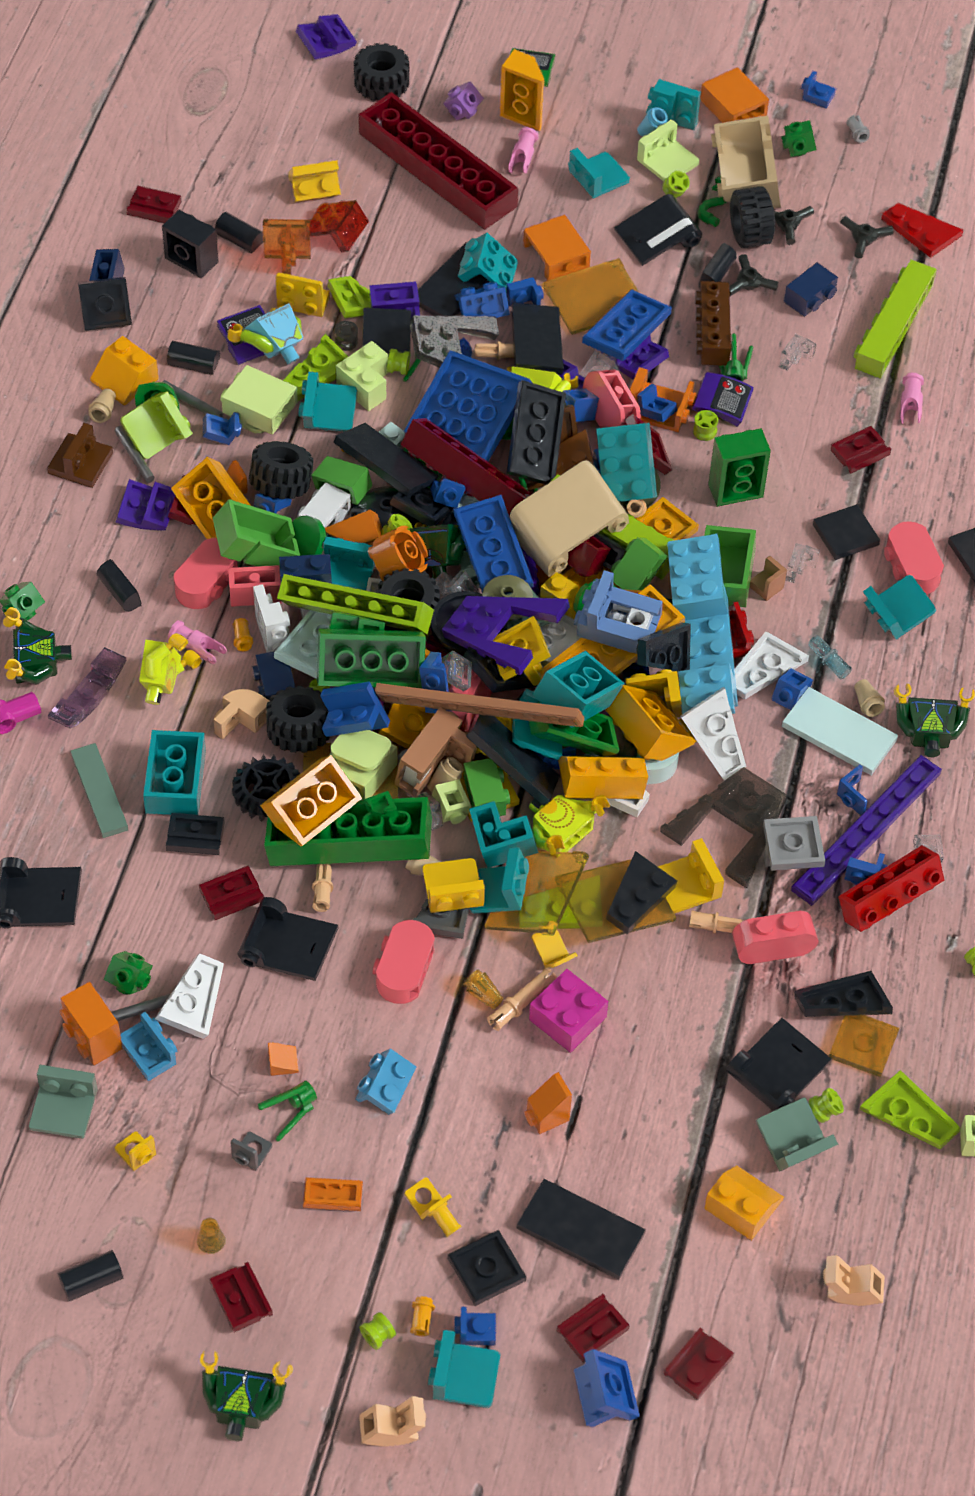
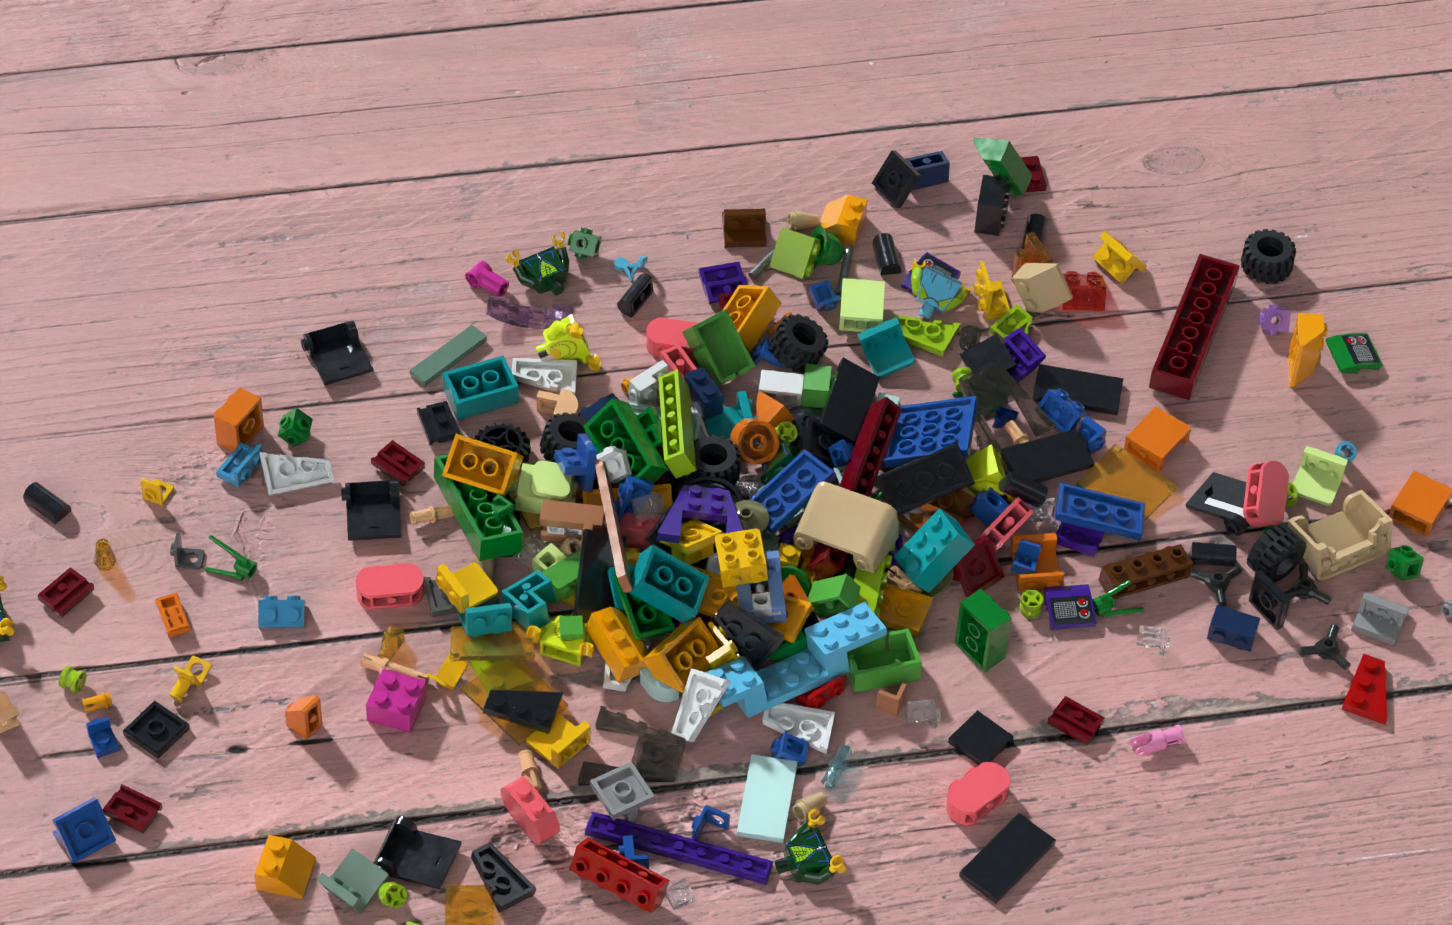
camera: 65 degrees right, 5 degrees down
(63, 585) = (622, 264): none -> medium azure piece
(63, 1101) = (172, 435): sand green bracket -> none
(139, 1008) = (268, 444): flat silver bar -> none
(149, 207) = (1004, 162): none -> green slope
(186, 704) = (546, 373): none -> white wing
(197, 641) = (611, 356): bright pink piece -> none
(282, 1059) = (271, 544): orange slope -> none
(309, 535) = (741, 383): green tile -> none
(326, 36) = (1288, 210): dark purple slope -> none
(327, 246) = (1041, 286): none -> tan slope
(366, 373) = (933, 359): yellowish green brick -> none
(394, 672) = (616, 463): none -> white bracket
(463, 1372) = (61, 739): teal bracket -> none
(490, 259) = (1106, 400): teal bracket -> none
(523, 149) = (1251, 381): bright pink piece -> none
(560, 808) = (571, 627): none -> bright green tile
(581, 365) = (1022, 487): none -> black brick
(581, 1229) = (214, 776): black tile -> none
(590, 605) = (741, 557): none -> yellow bracket
(597, 174) = (1262, 438): teal bracket -> none
(677, 101) = (1371, 458): teal plate -> none
(681, 192) = (1266, 494): none -> coral brick
(698, 1363) = (133, 887): dark red plate -> none
(799, 246) = (1269, 600): none -> black tile
(847, 183) = (1380, 618): none -> light grey bracket
(894, 319) = (1242, 699): lime brick -> none
(900, 606) = (911, 796): teal bracket -> none

